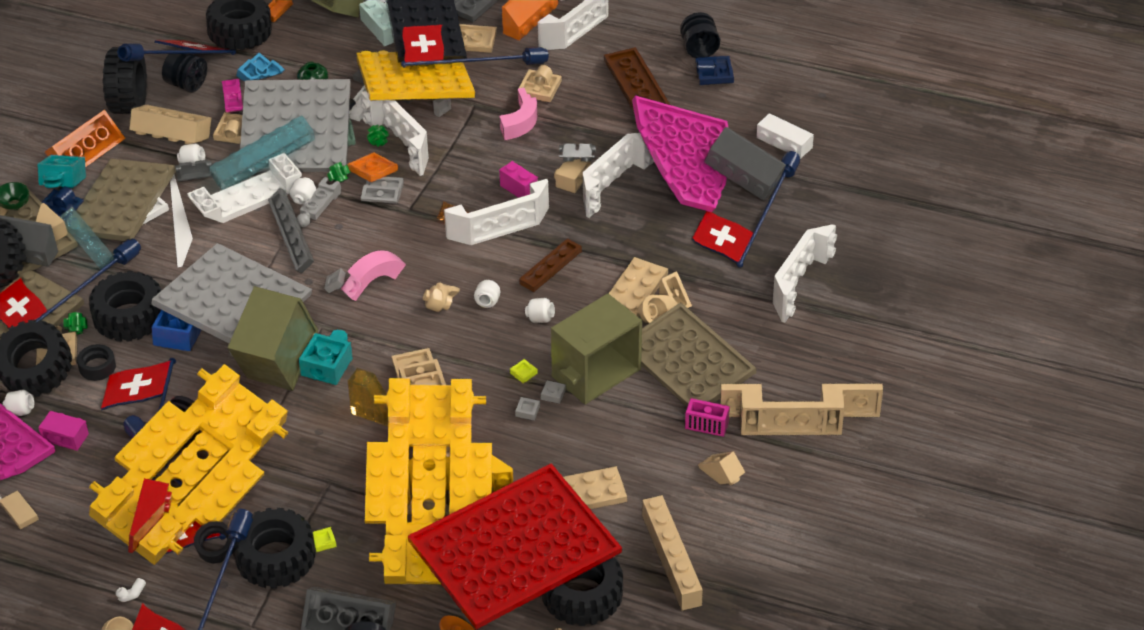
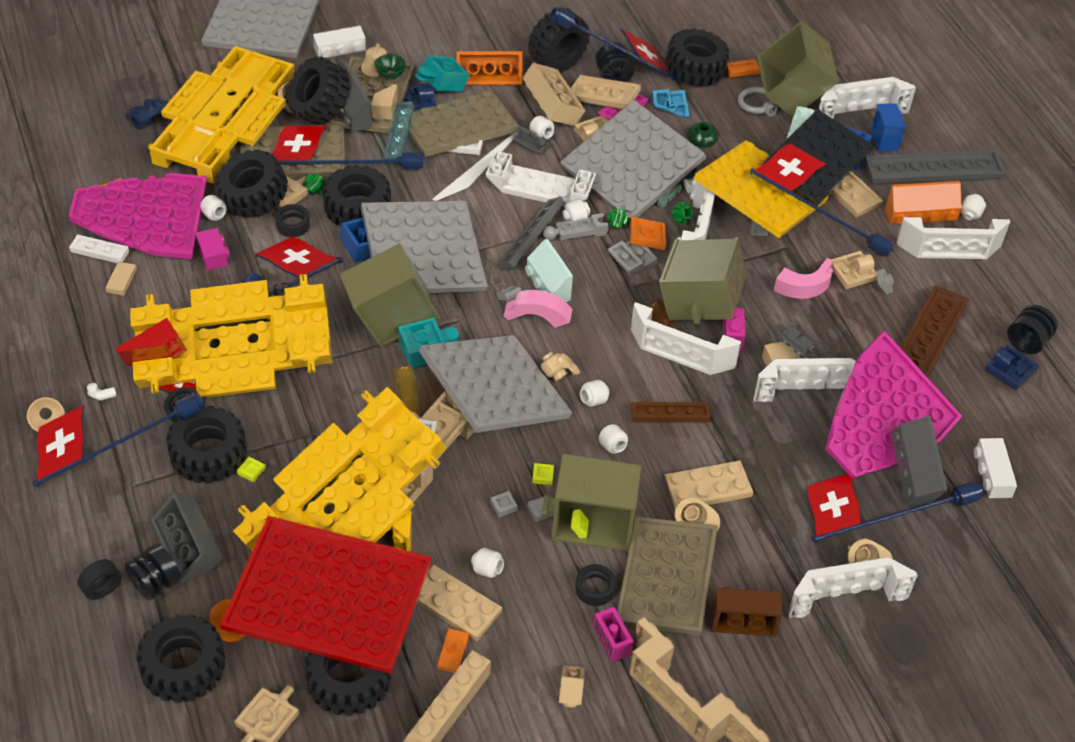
camera: 45 degrees right, 5 degrees up
(204, 94) = (604, 91): none -> tan plate
(255, 156) = (572, 159): clear light blue brick -> none
(335, 22) = (768, 108): none -> light grey piece
(346, 241) = (549, 271): none -> light aqua slope
(419, 337) = (494, 383): none -> light grey plate
(467, 160) = (703, 279): none -> olive piece
(570, 75) = (885, 281): none -> light grey plate
(570, 449) = (487, 562): none -> white head
(596, 376) = (580, 524): none -> neon yellow tile
(622, 518) = (453, 650): none -> orange plate
(650, 392) = (601, 572): none -> black tyre
(672, 286) = (728, 514): tan slope -> none
(766, 334) = (746, 612): none -> reddish brown brick
(783, 244) = (866, 550): none -> tan piece

